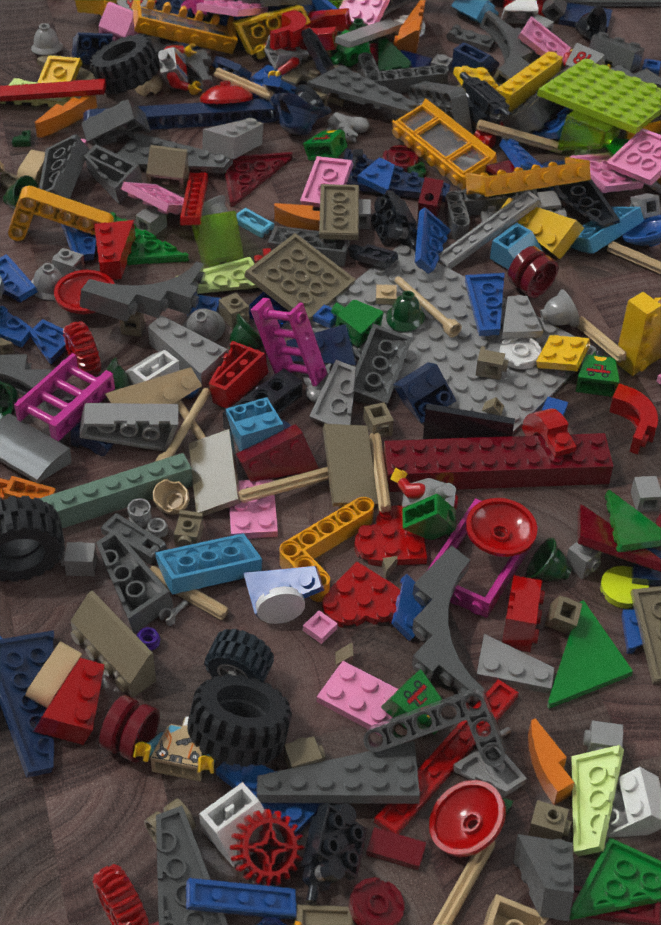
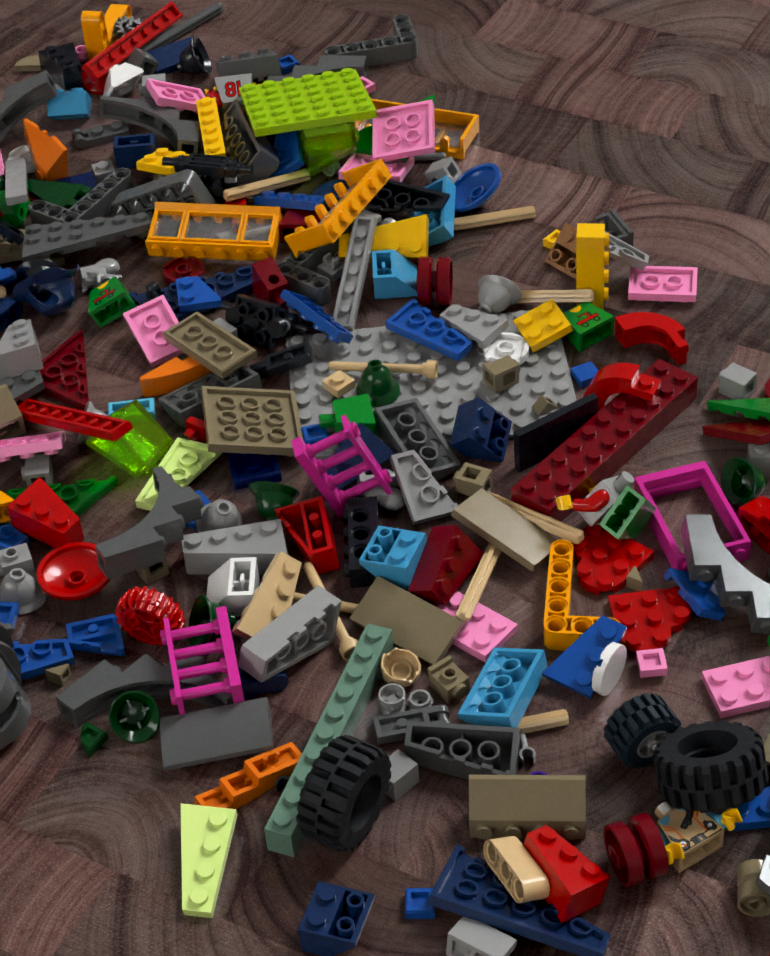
camera: 40 degrees left, 5 degrees down
(231, 306) = (229, 487): dark tan brick -> none
(344, 654) = (695, 667): dark tan piece -> none
(418, 168) = (211, 269): dark green tile -> none
(504, 519) = (693, 477): red dish -> none

